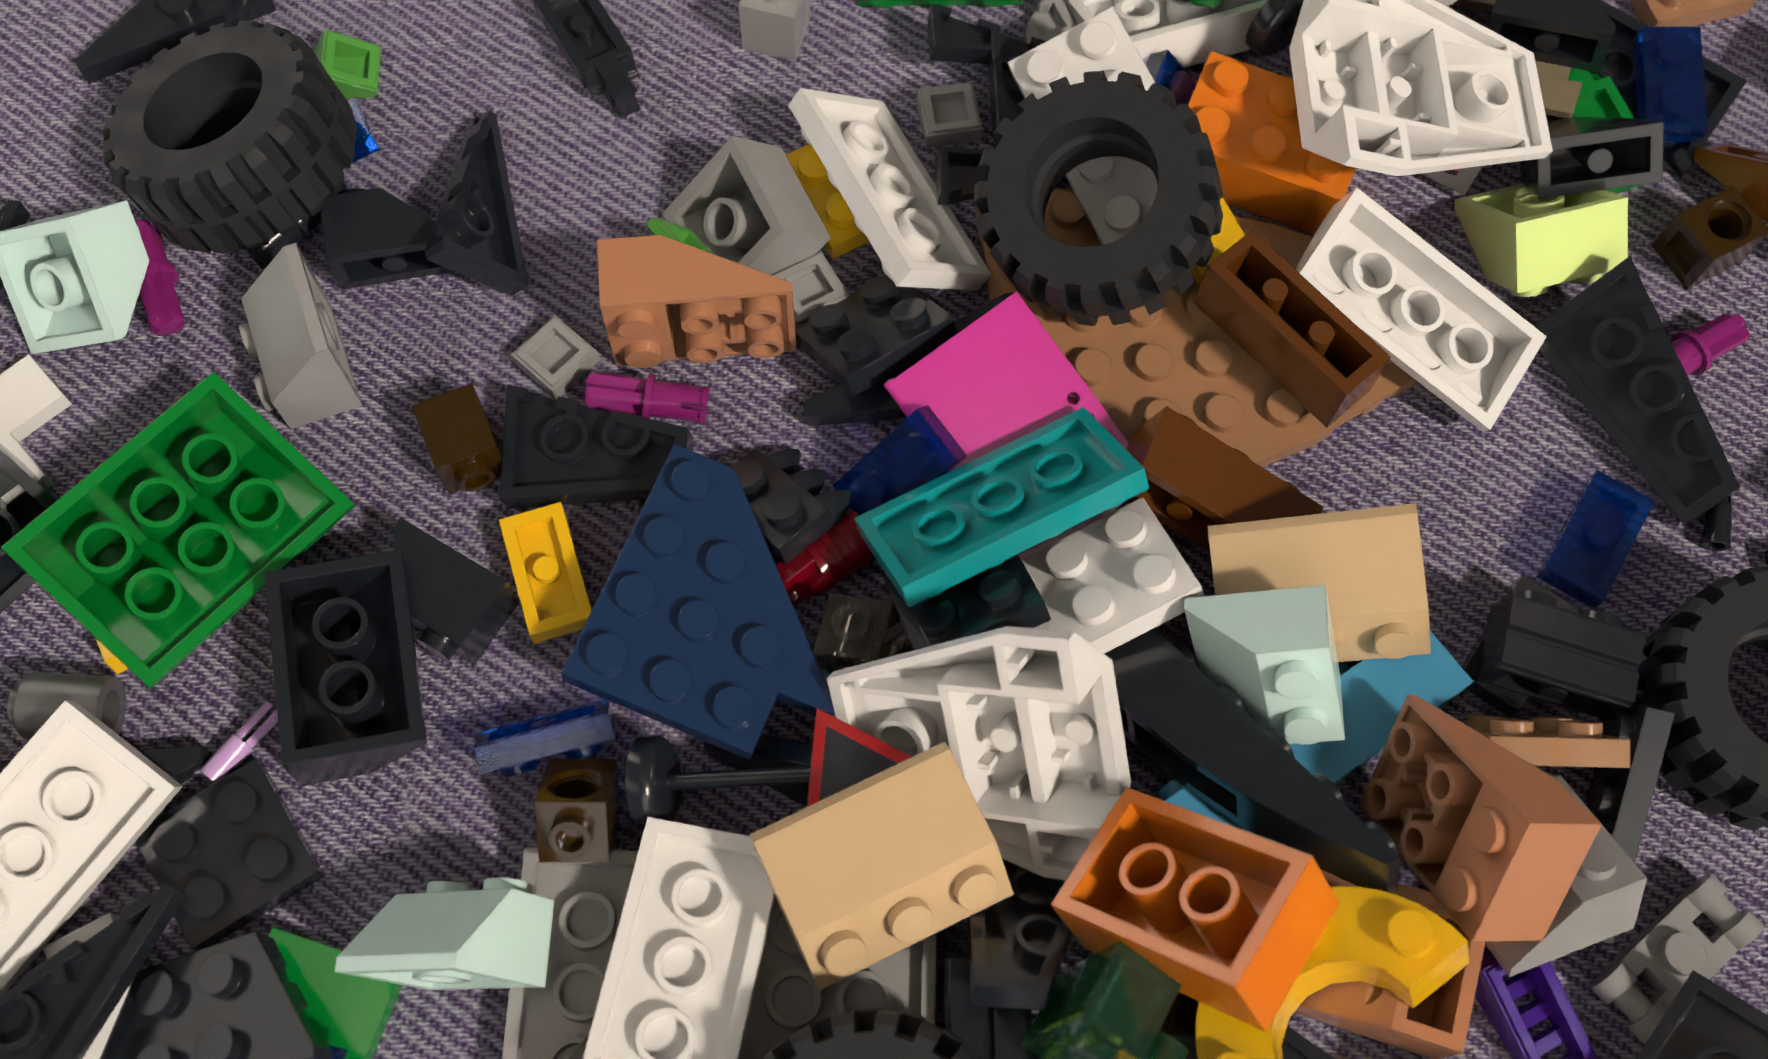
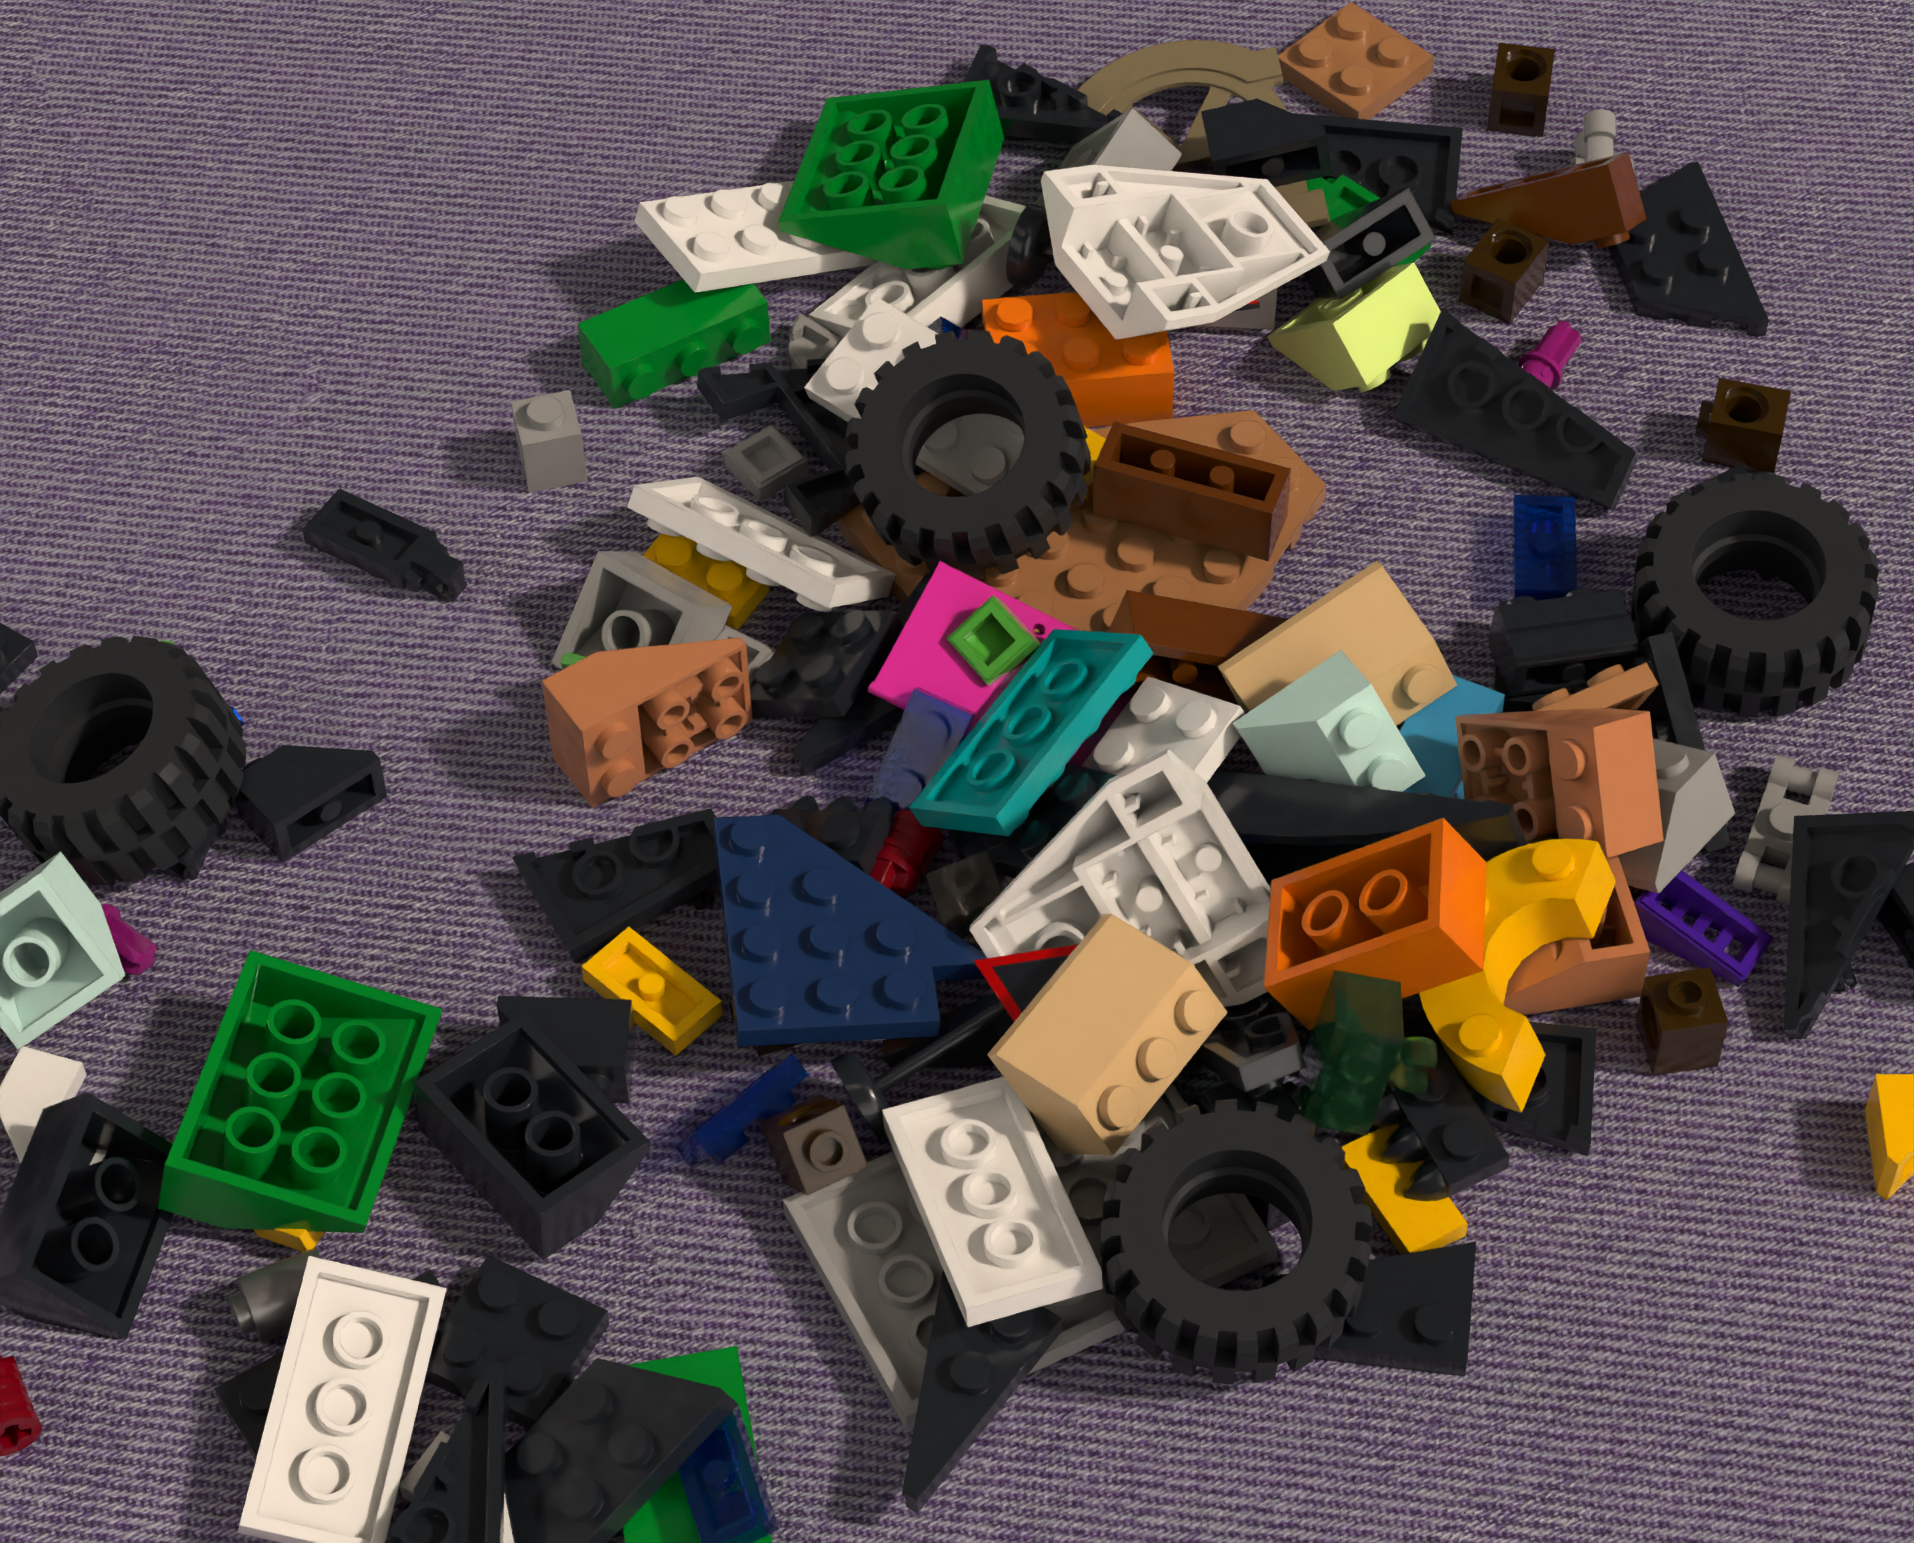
camera: 25 degrees left, 15 degrees down
(234, 750) = (461, 1260): lavender pin -> none
(296, 343) = (293, 899): light grey slope -> none
(456, 938) = (783, 1279): light aqua slope -> none
(460, 439) = (498, 922): dark brown brick -> none
(477, 216) = (383, 730): black wing -> none
(555, 357) = (533, 822): light grey tile -> none
(647, 397) = (623, 816): magenta axle -> none
(1023, 392) = (993, 640): none -> bright green slope
(1420, 308) = (1319, 432): white slope -> none
(1671, 81) = (1398, 154): clear blue plate -> none
(1718, 526) = (1640, 497): black pin -> none

